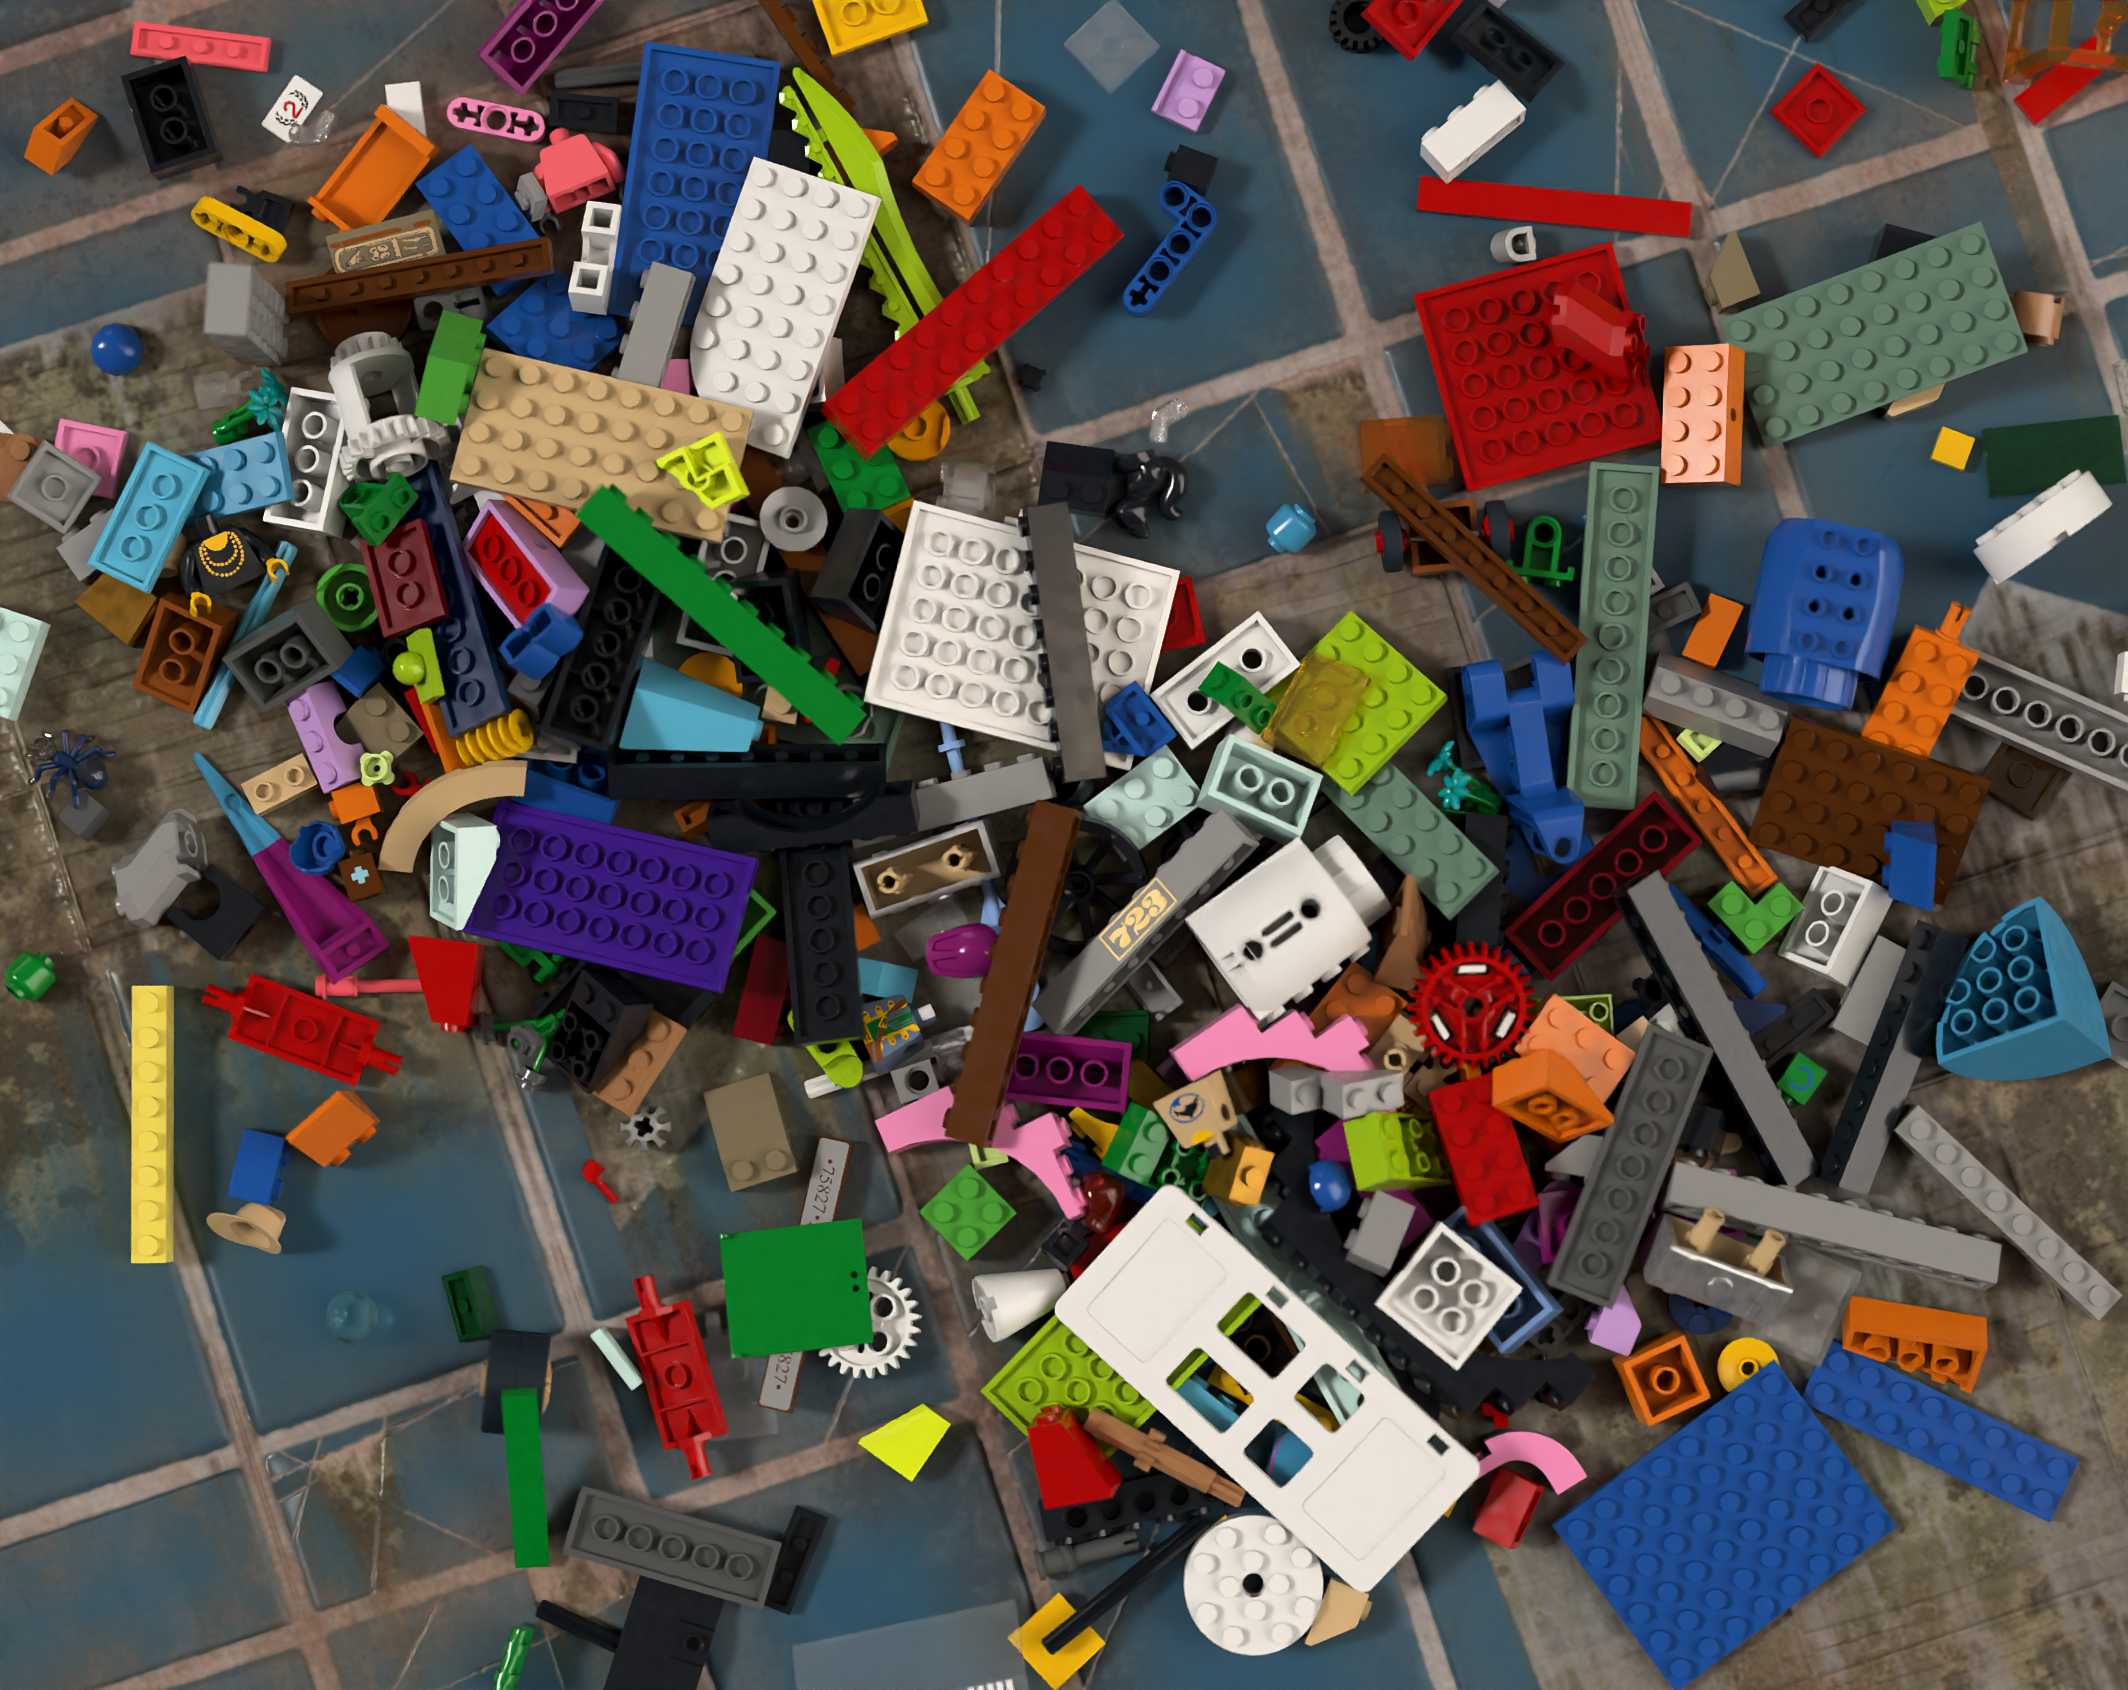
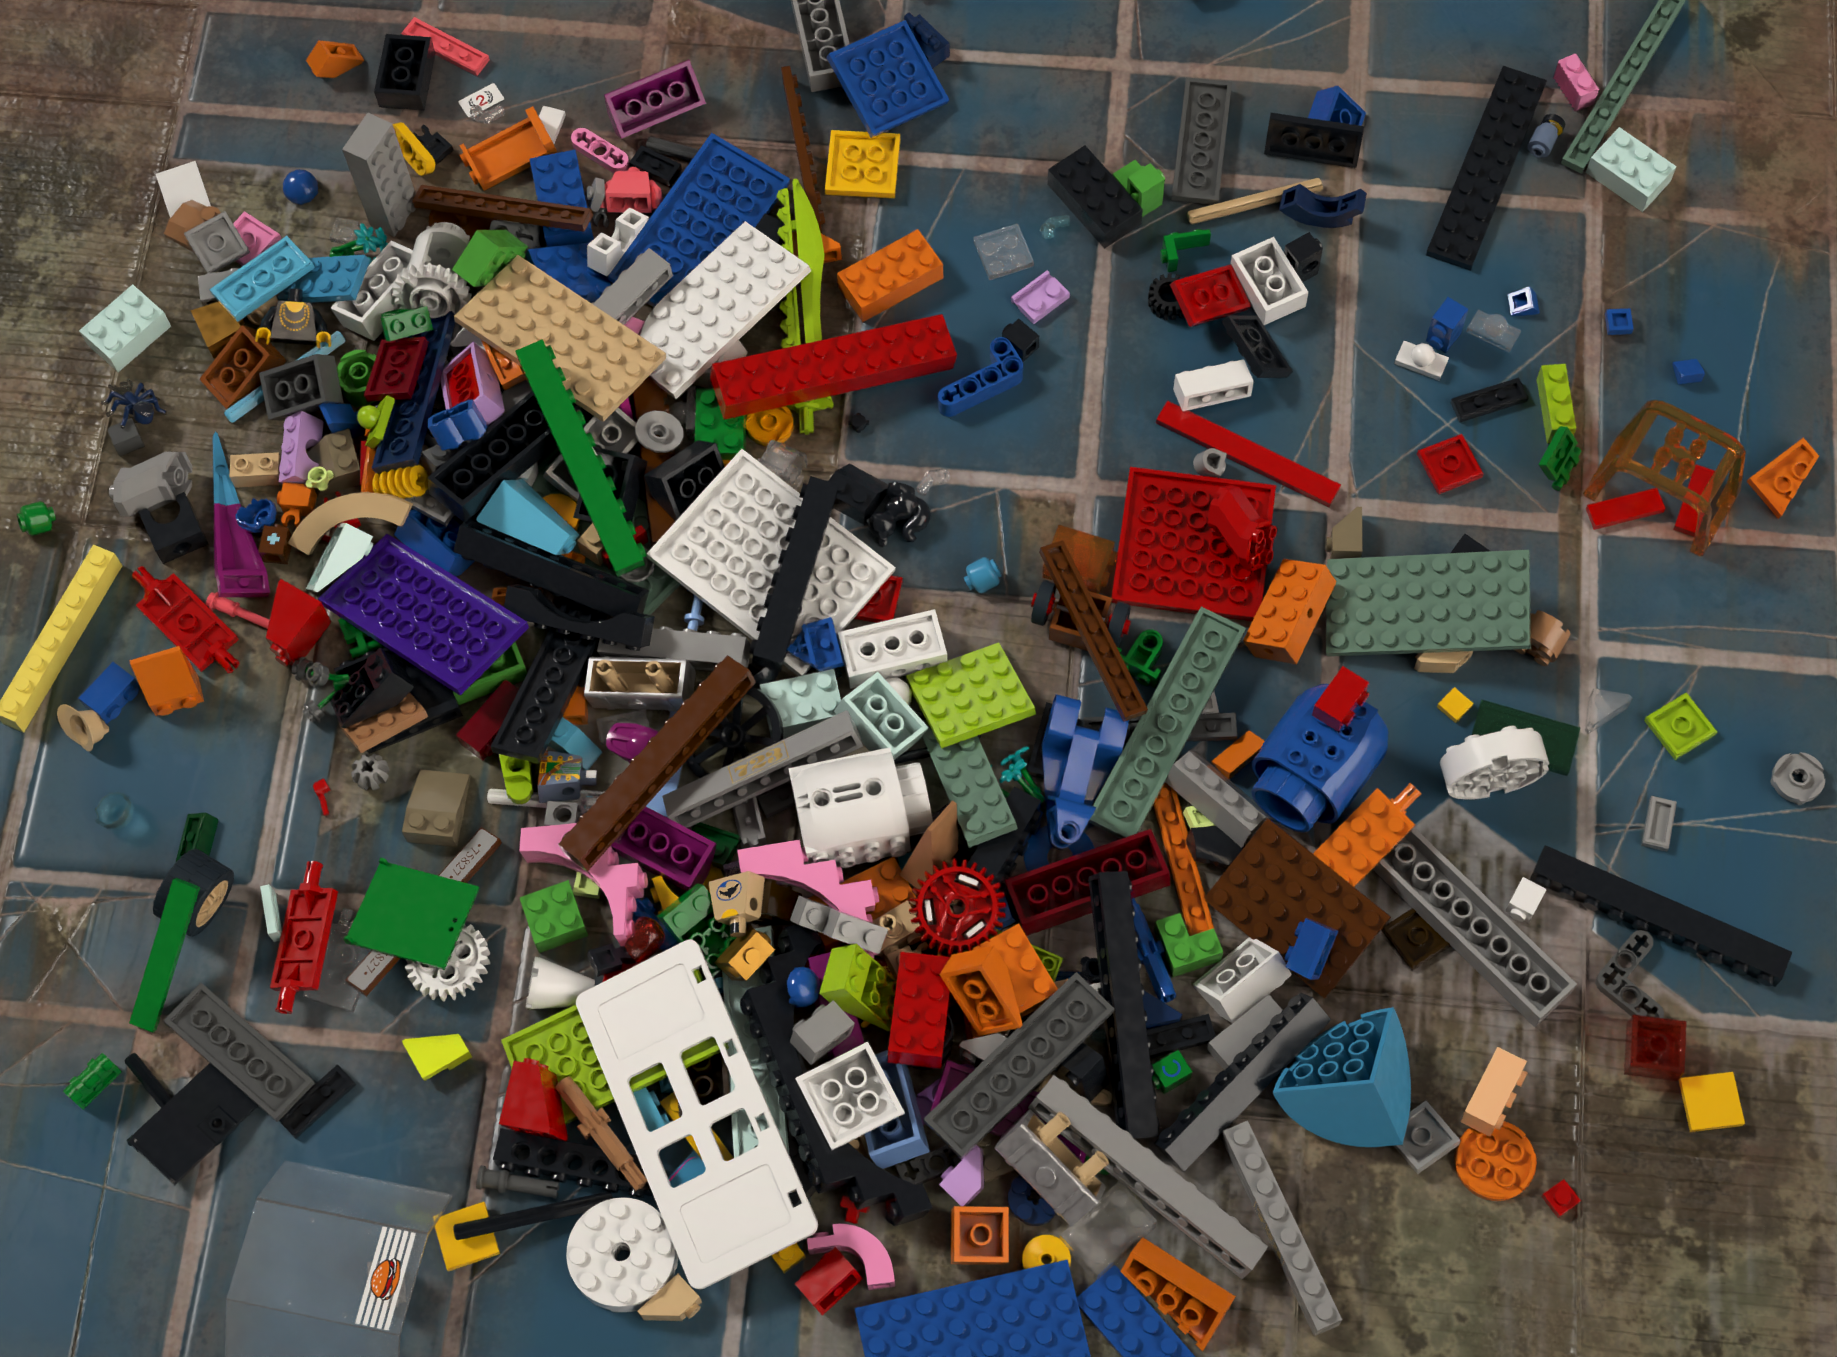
camera: 25 degrees right, 20 degrees down
(386, 242) = (494, 183): sticker -> none
(707, 471) = (616, 370): neon yellow slope -> none
(1238, 697) = (897, 656): green bracket -> none
(1315, 708) = (943, 685): clear yellow tile -> none
(1837, 545) = (1341, 698): none -> red brick

